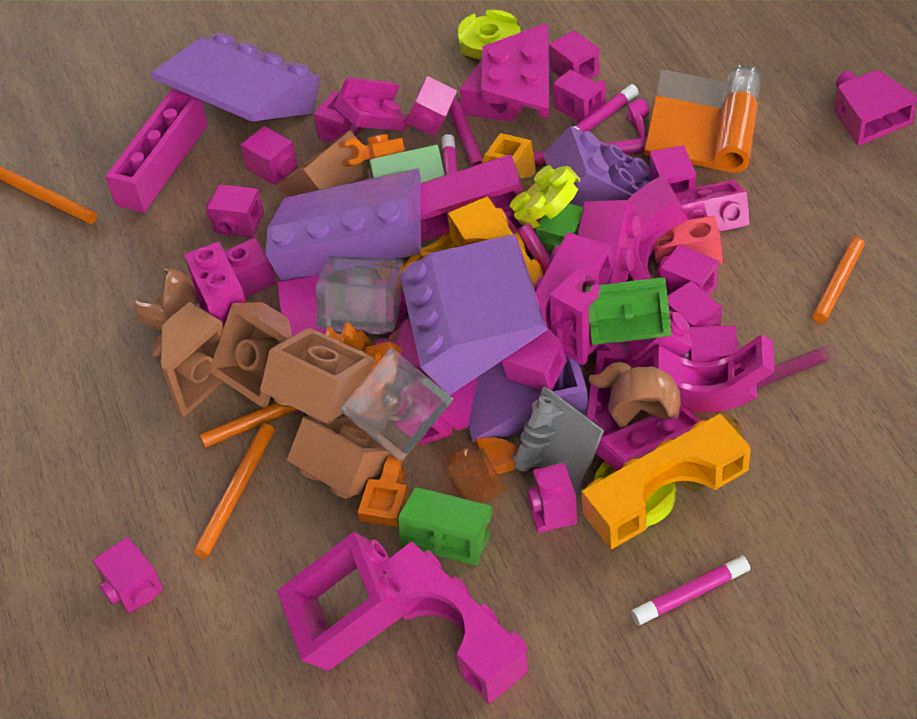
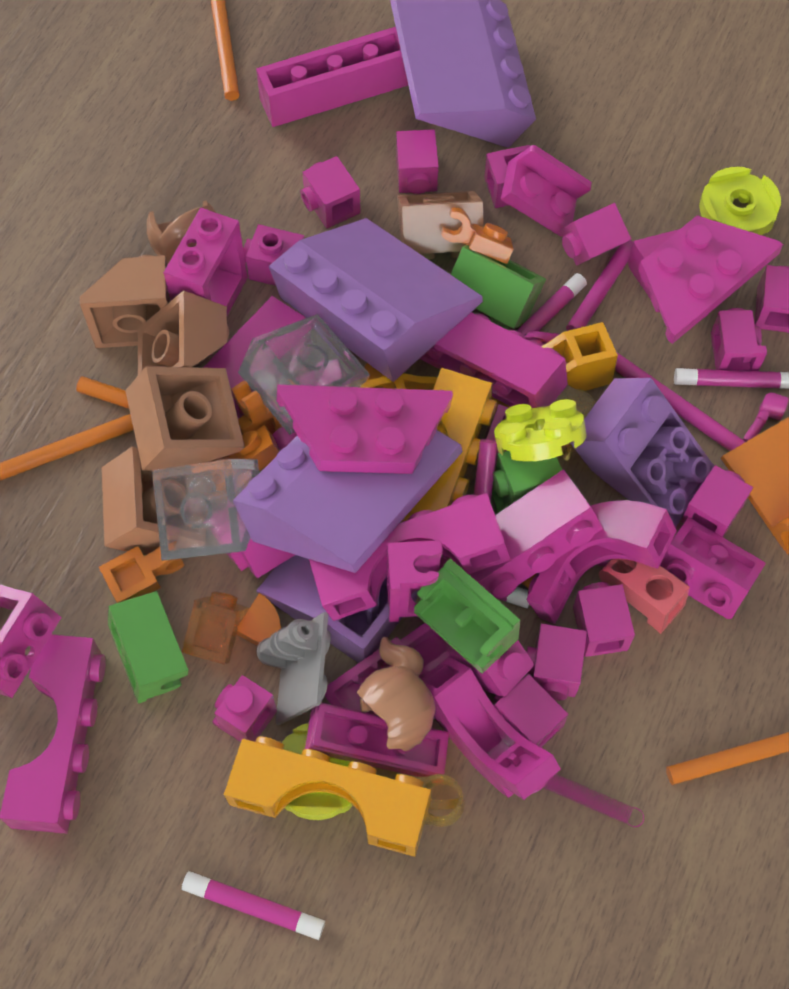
camera: 40 degrees right, 15 degrees up
(448, 266) = (364, 426): none -> dark pink wing

